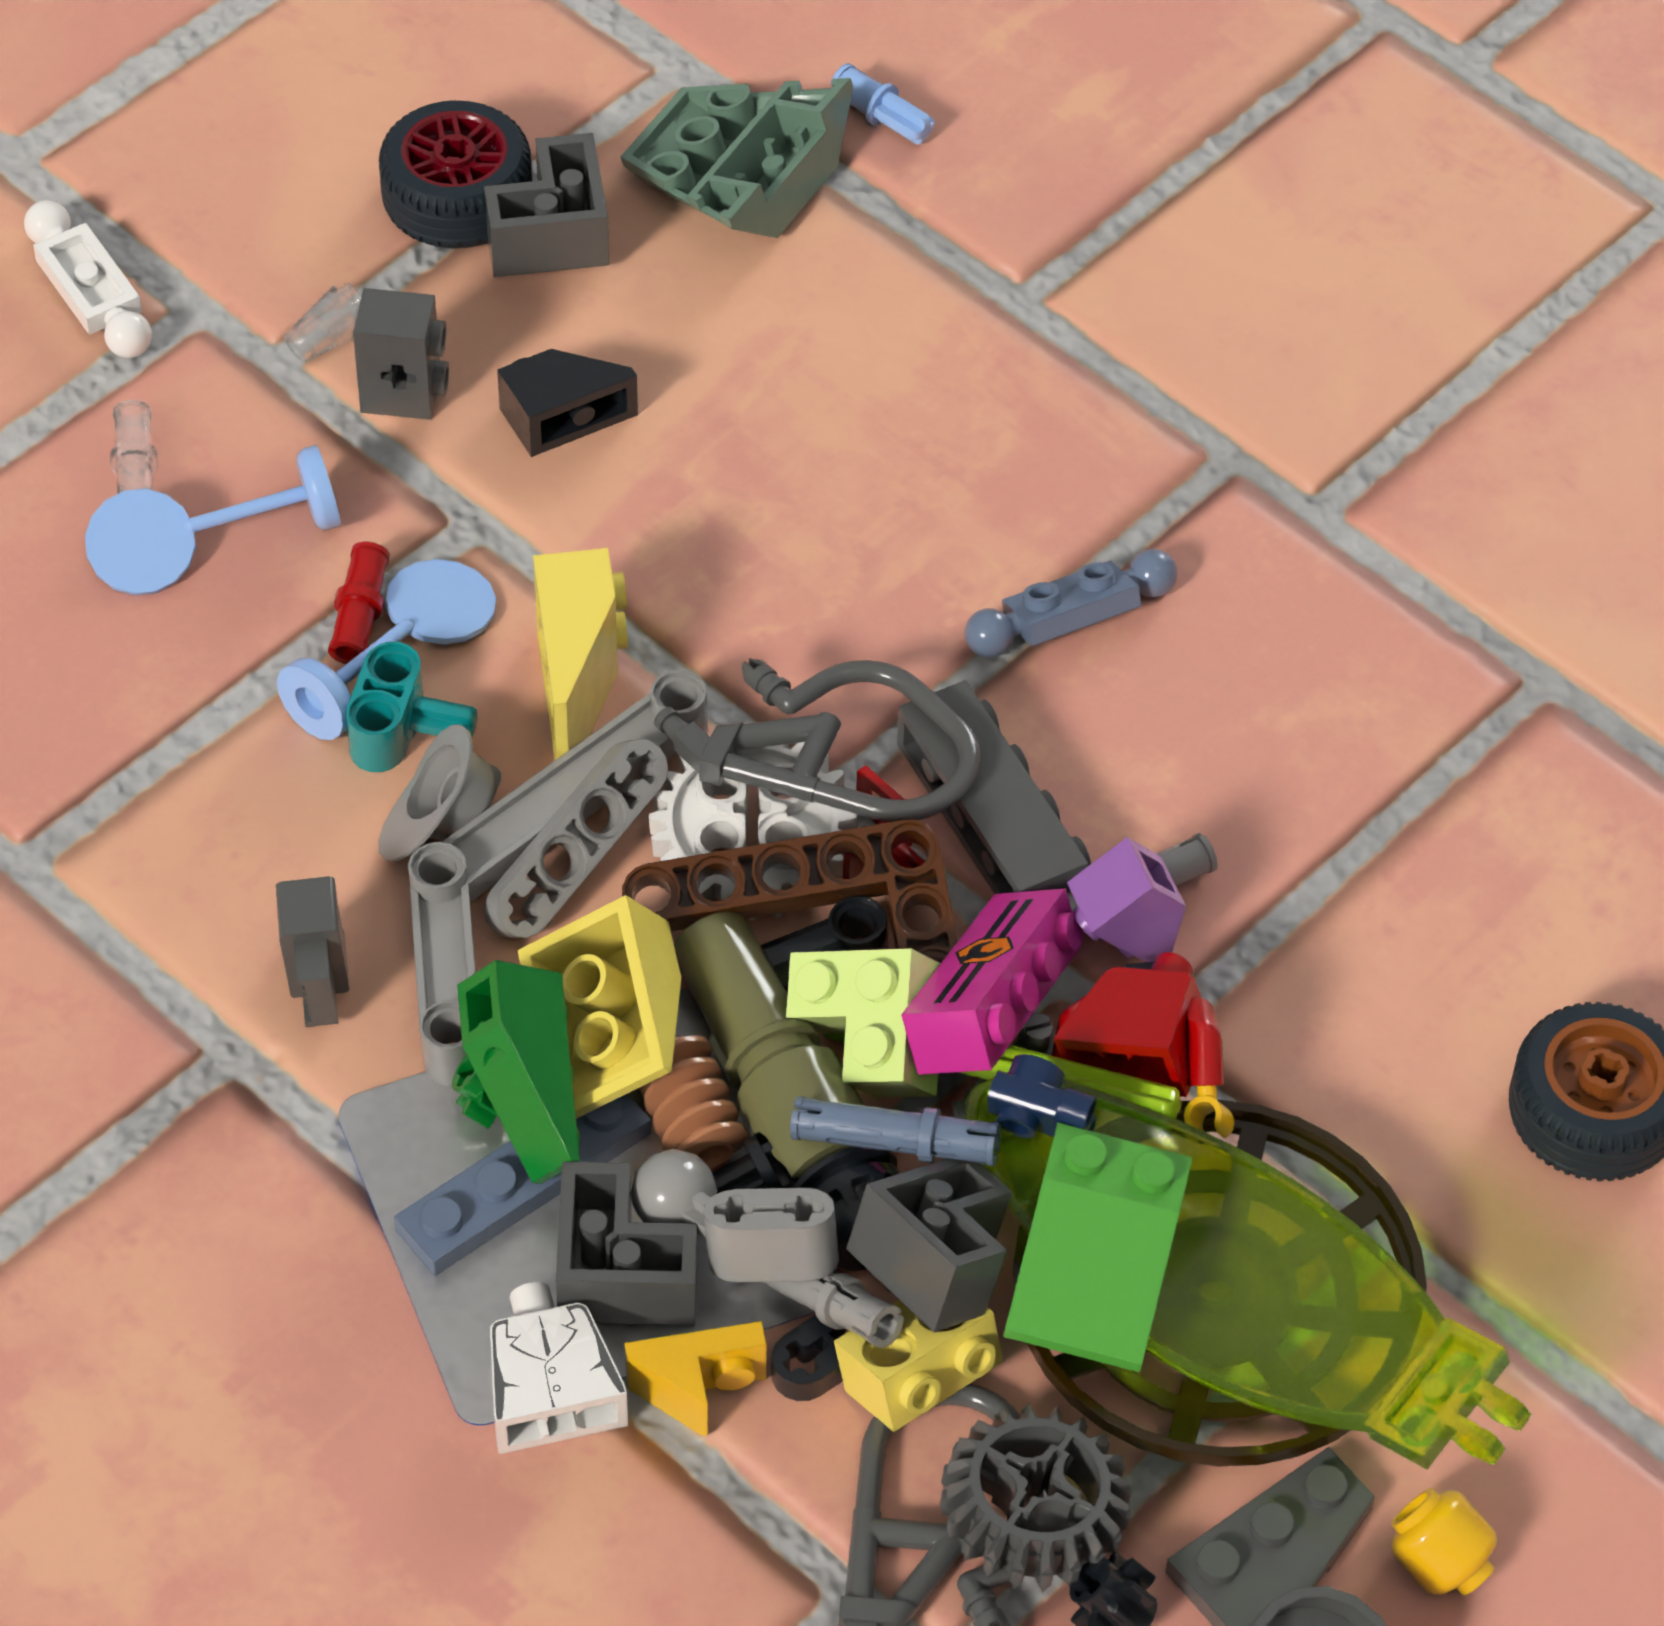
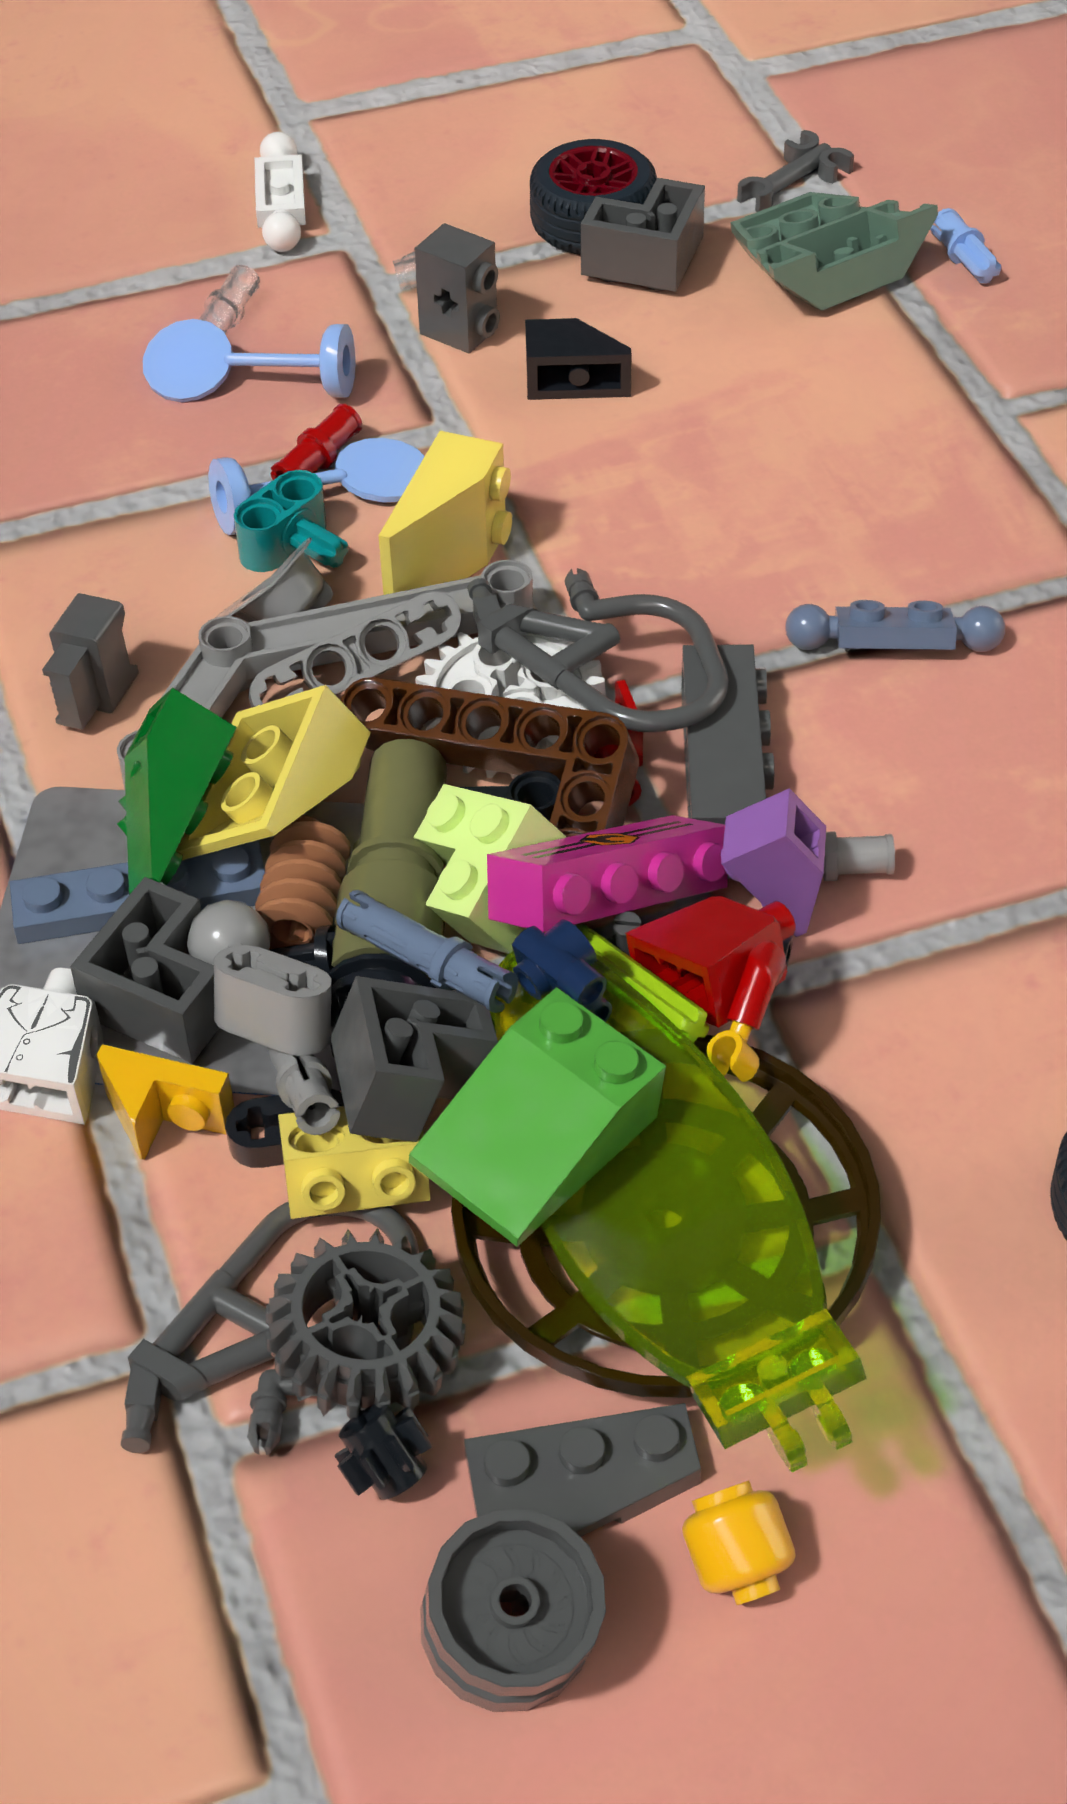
camera: 30 degrees right, 5 degrees down
(646, 36) = (801, 160): none -> dark grey bar

